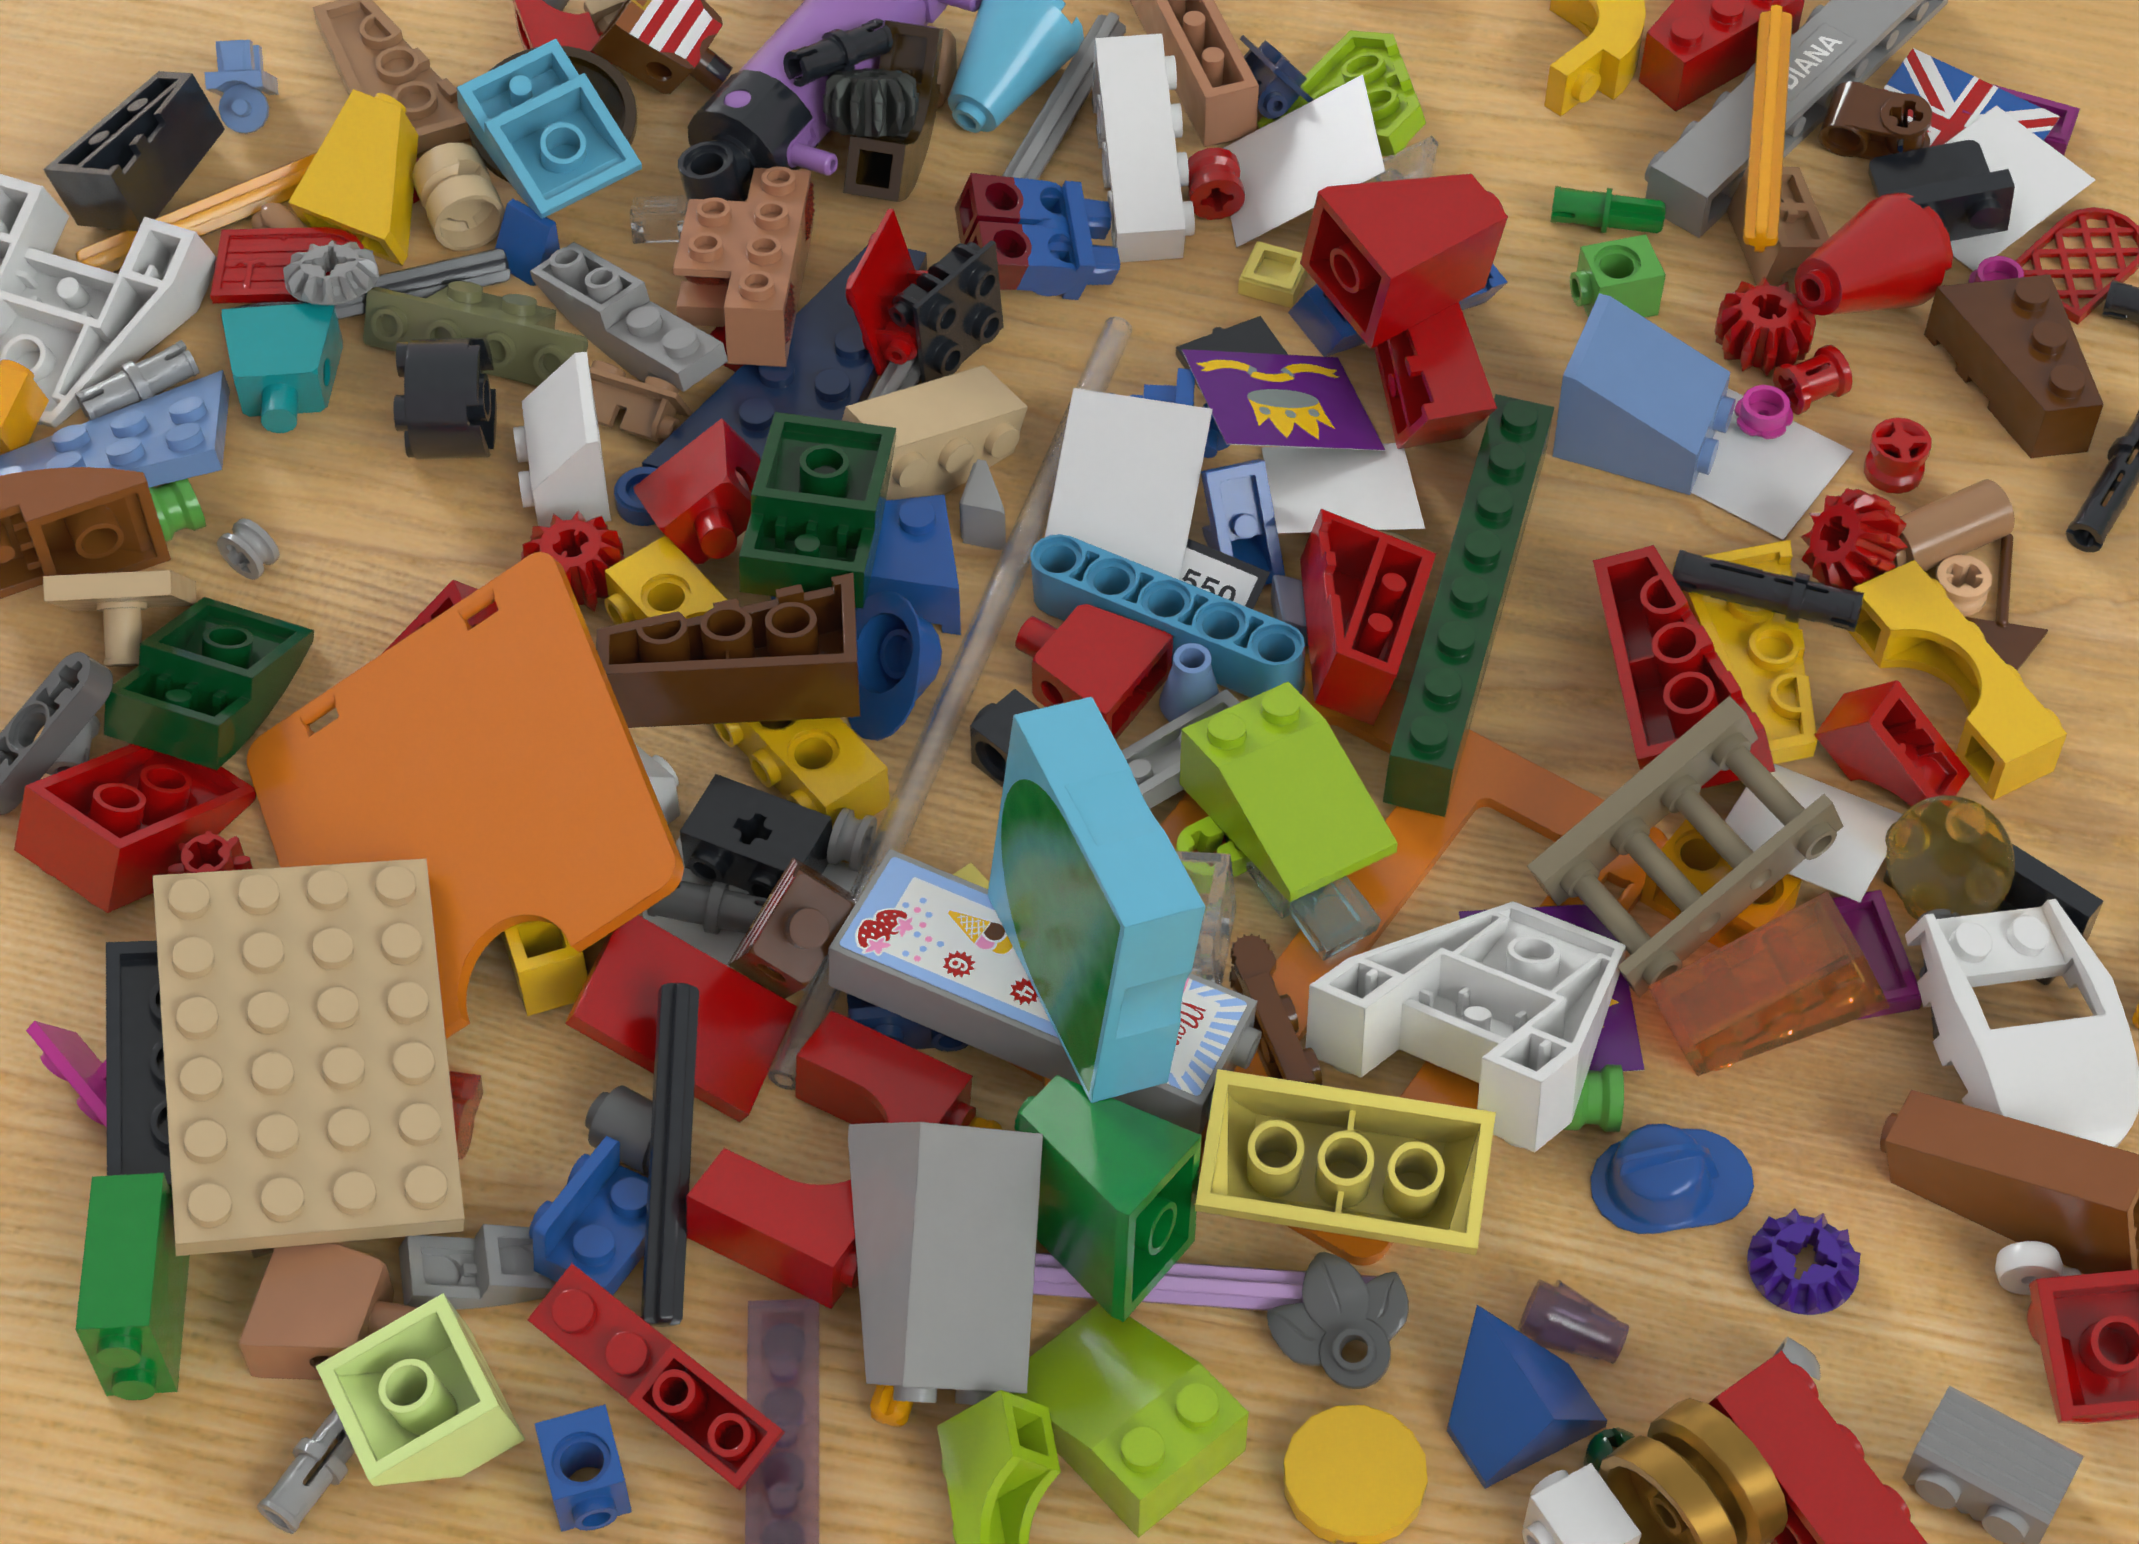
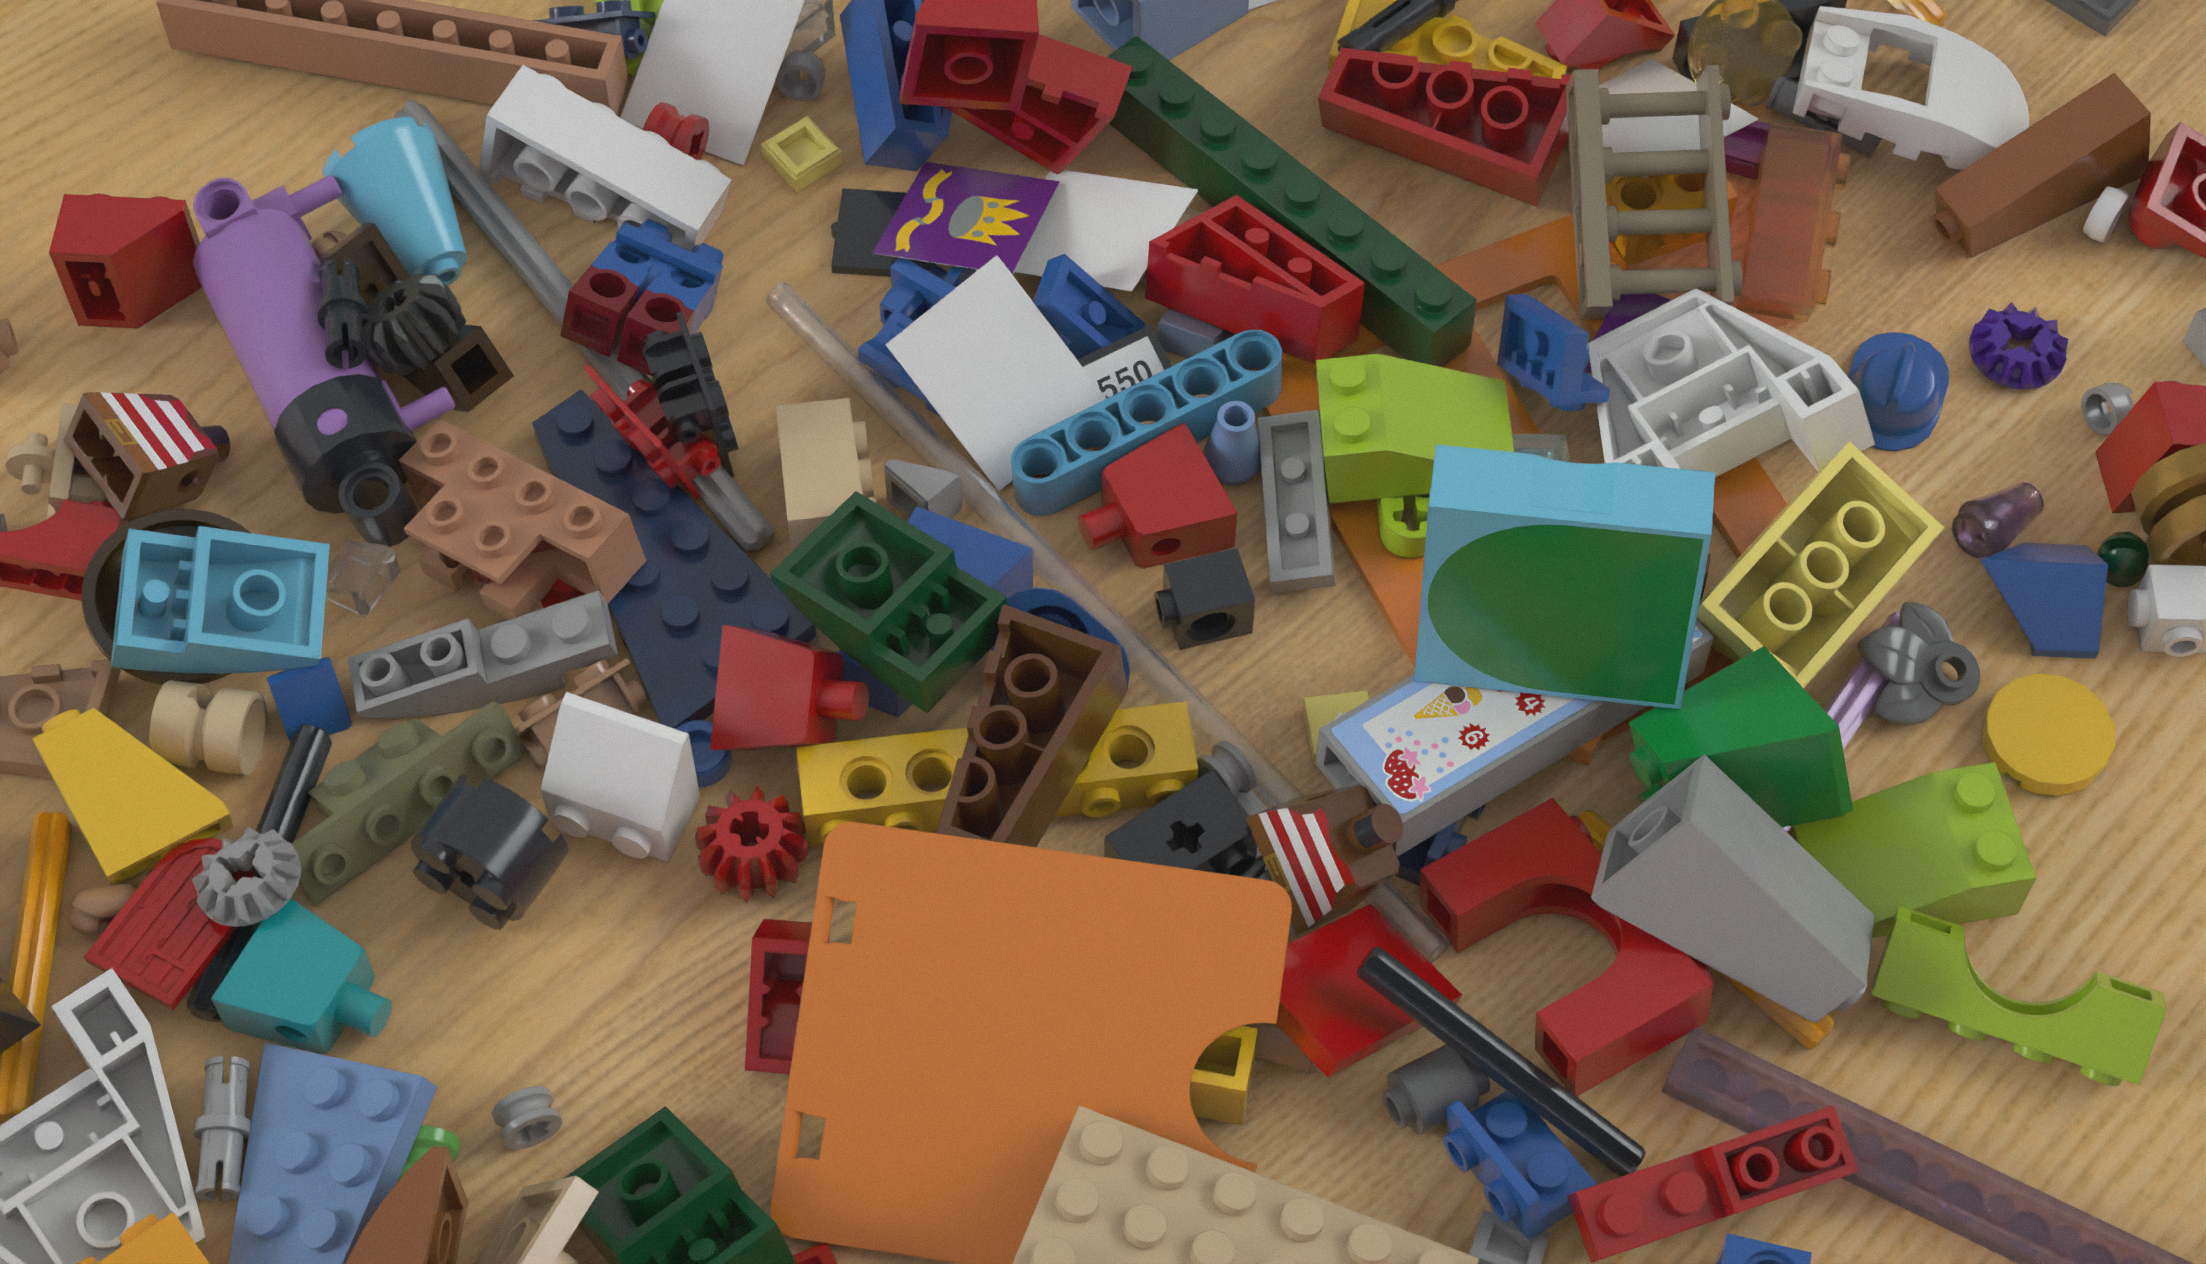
camera: 60 degrees left, 5 degrees up
(1445, 876) = (1547, 354): none -> blue bracket

